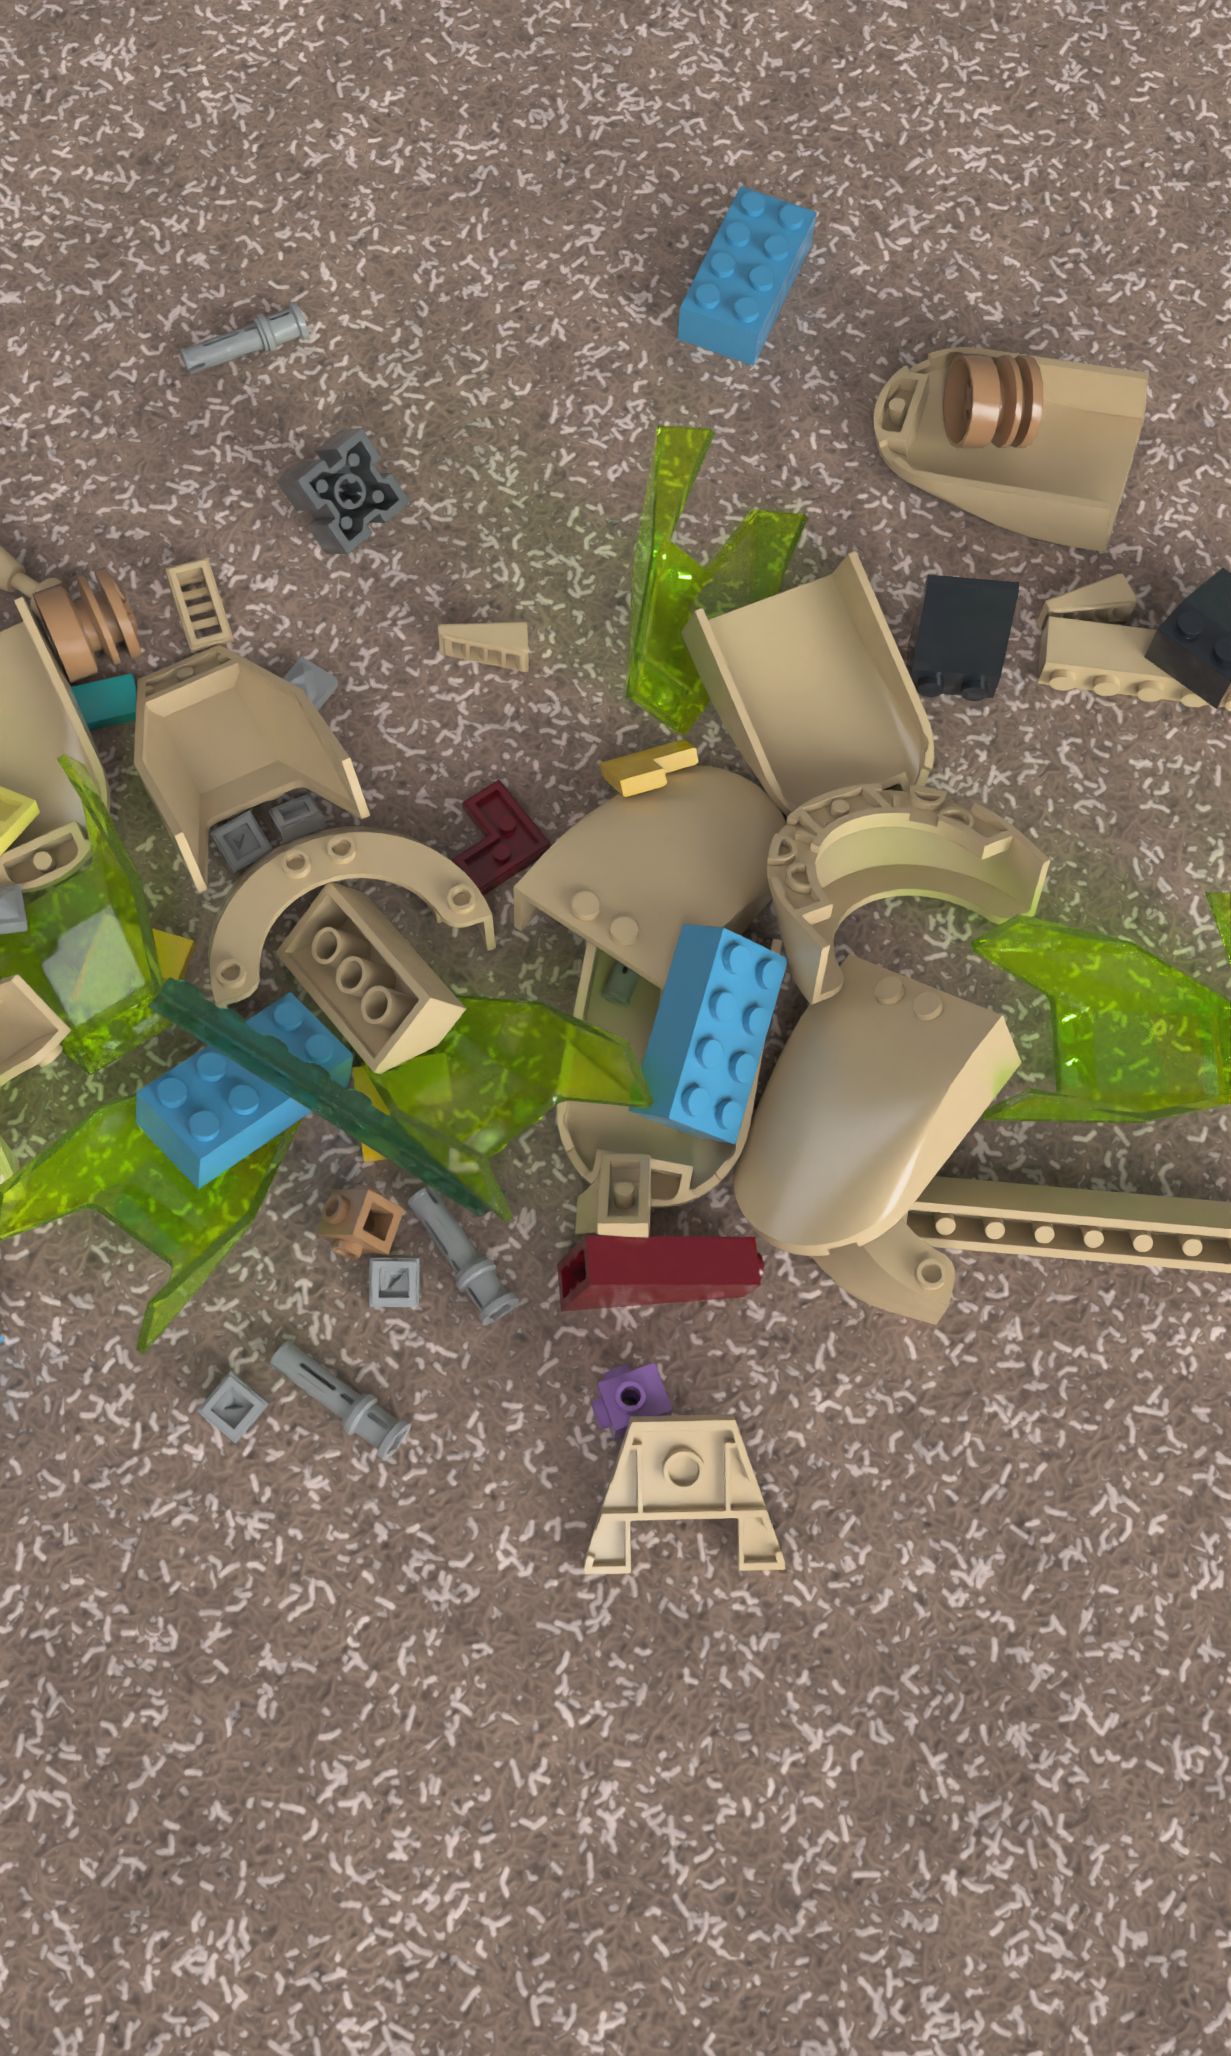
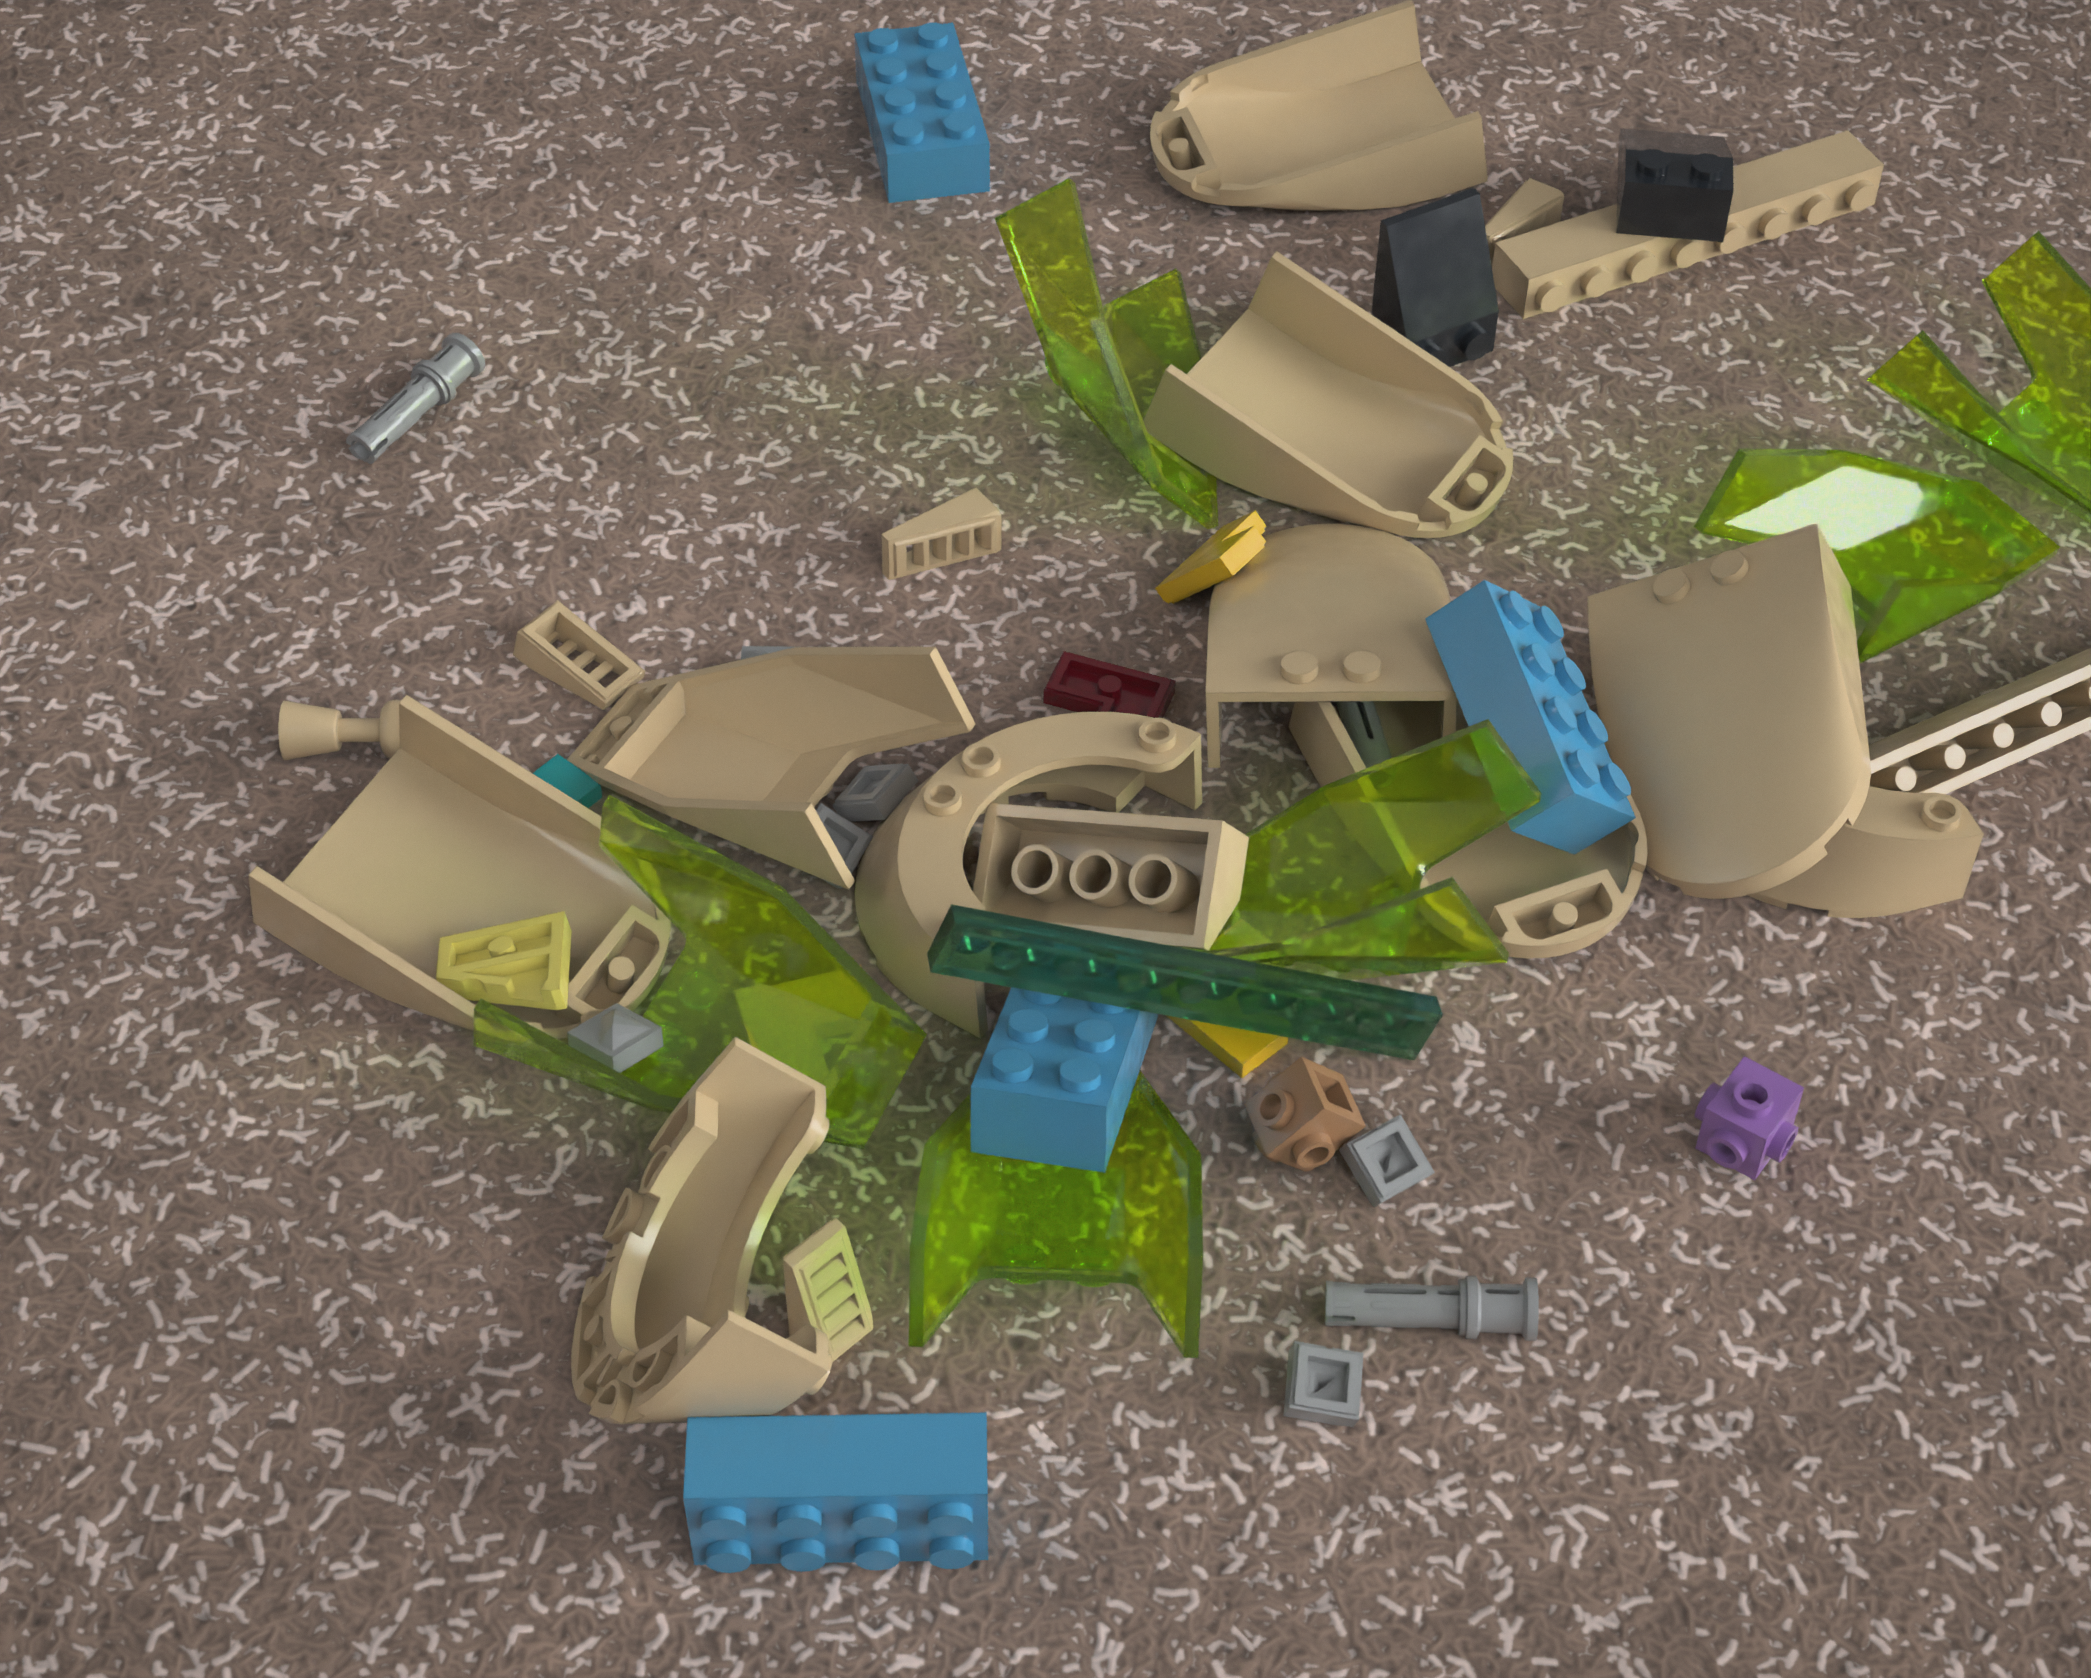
camera: 30 degrees left, 20 degrees down
(88, 624) = (493, 697): medium nougat wheel -> none
(343, 491) = (668, 464): dark grey brick -> none
(472, 1271) = (1464, 1104): light grey pin -> none
(618, 1198) = (1566, 925): tan slope -> none
(657, 1270) = (1650, 990): dark red slope -> none
(677, 1472) = (1864, 1144): tan wing -> none
(887, 844) = (1525, 504): tan windscreen -> none
(992, 401) = (1276, 94): medium nougat wheel -> none

